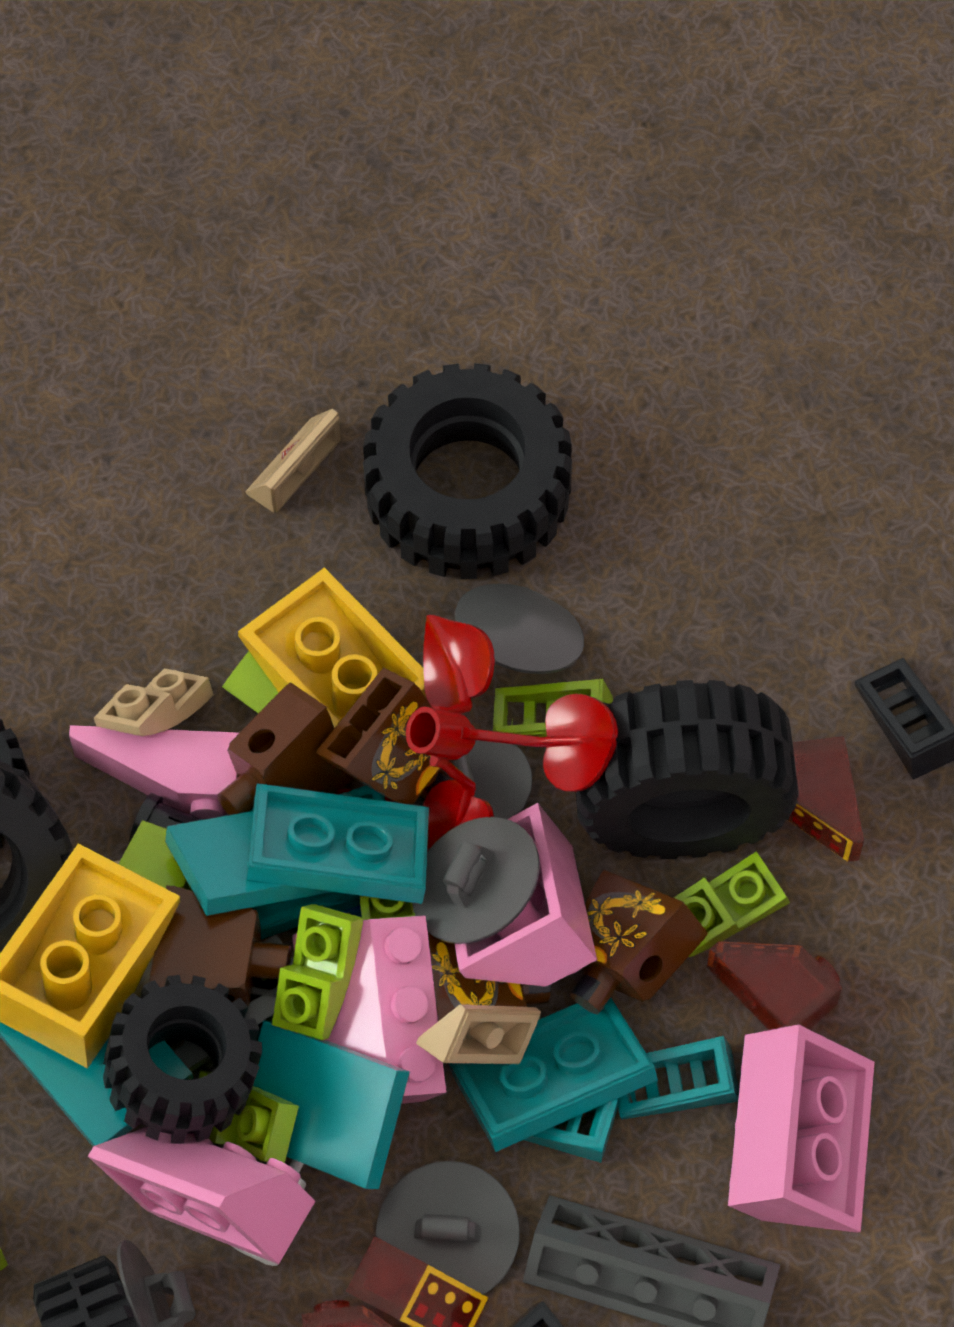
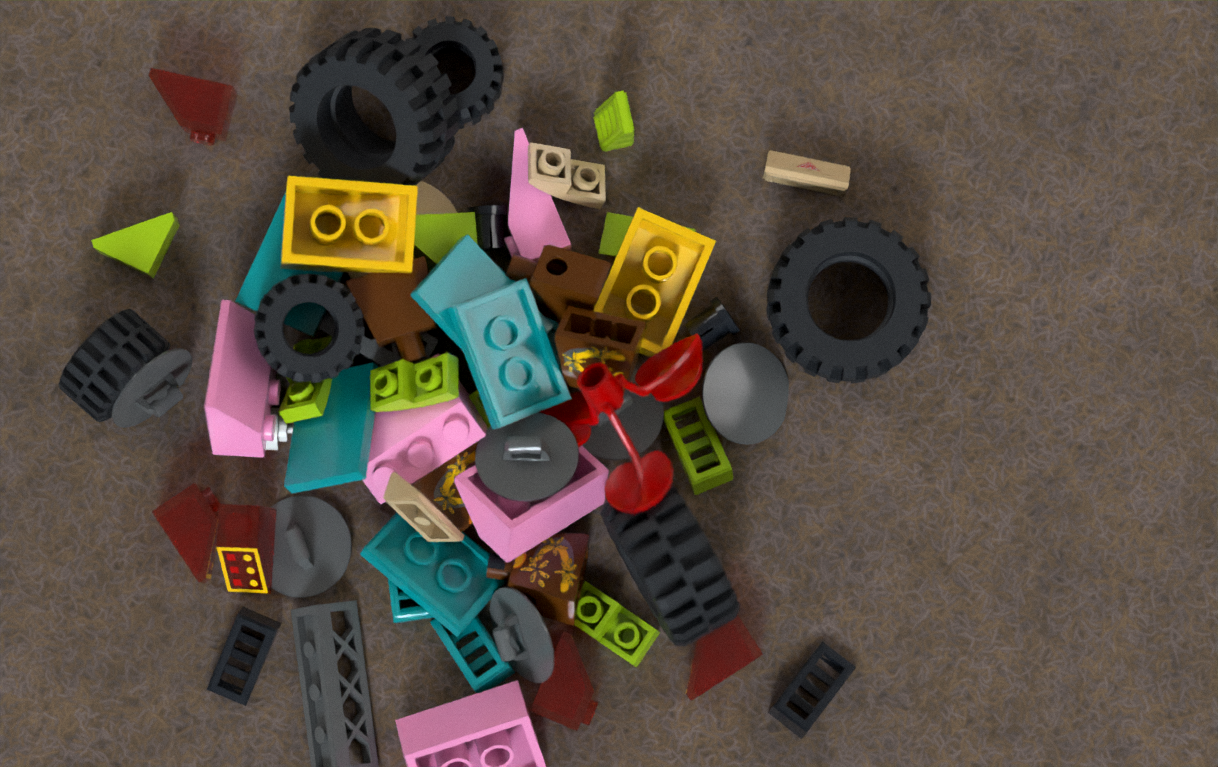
camera: 65 degrees right, 20 degrees up
(121, 621) = (614, 123): none -> lime slope
(410, 622) = (712, 324): none -> black bush
(691, 996) = (521, 635): none -> dark grey shield

